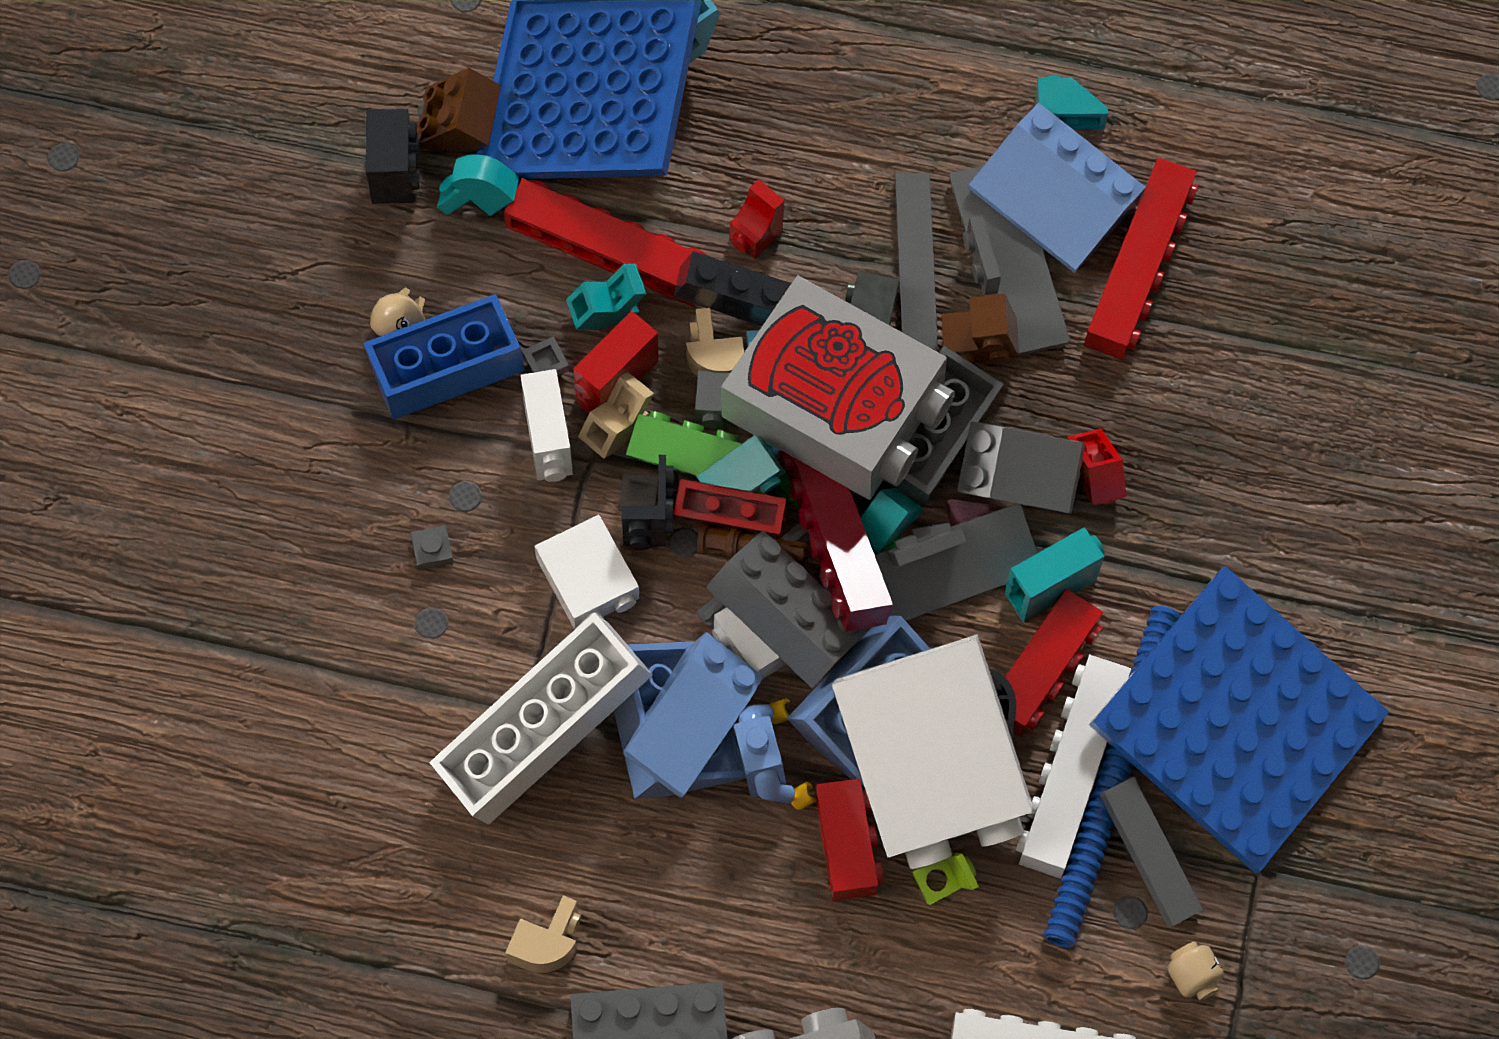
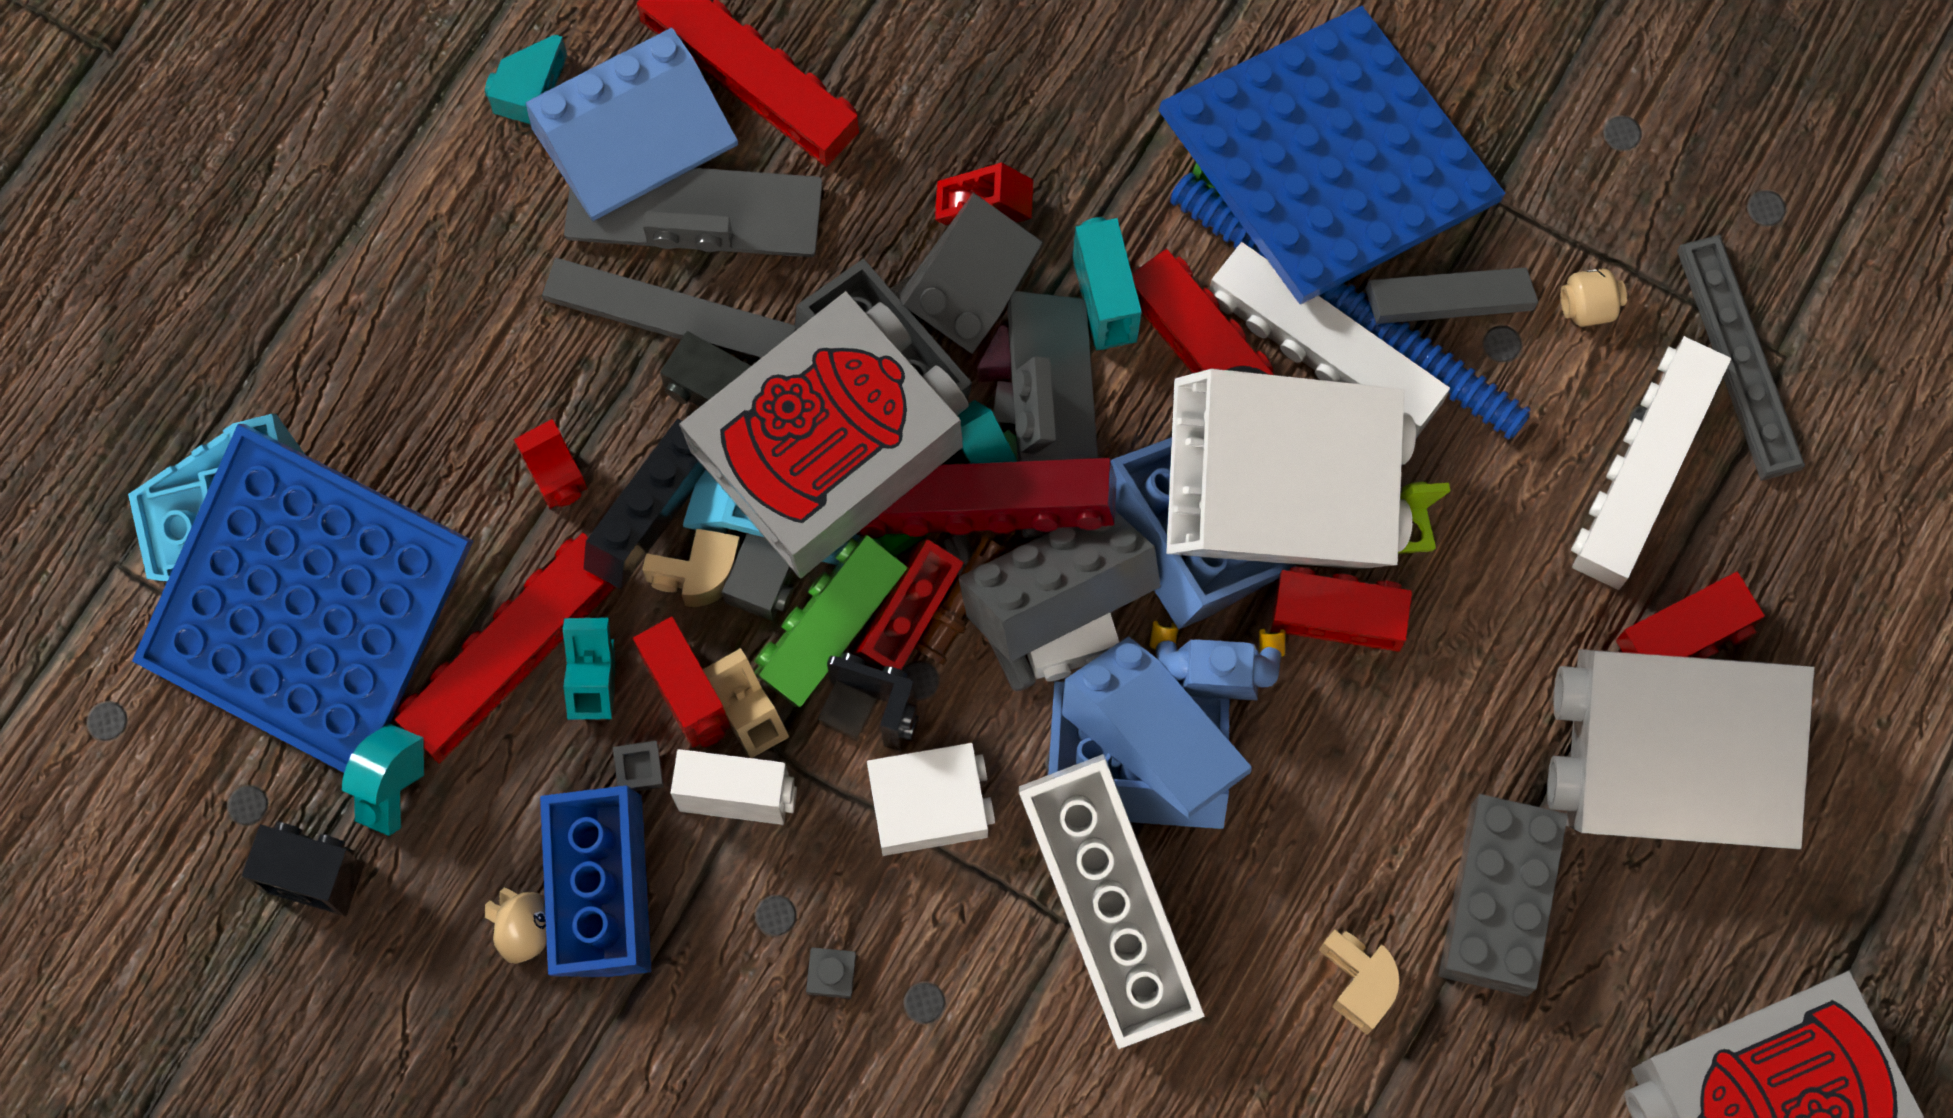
camera: 70 degrees left, 5 degrees up
(458, 113) = (270, 771): reddish brown slope -> none
(746, 468) = (880, 571): teal slope -> none
(984, 332) = (786, 264): reddish brown brick -> none

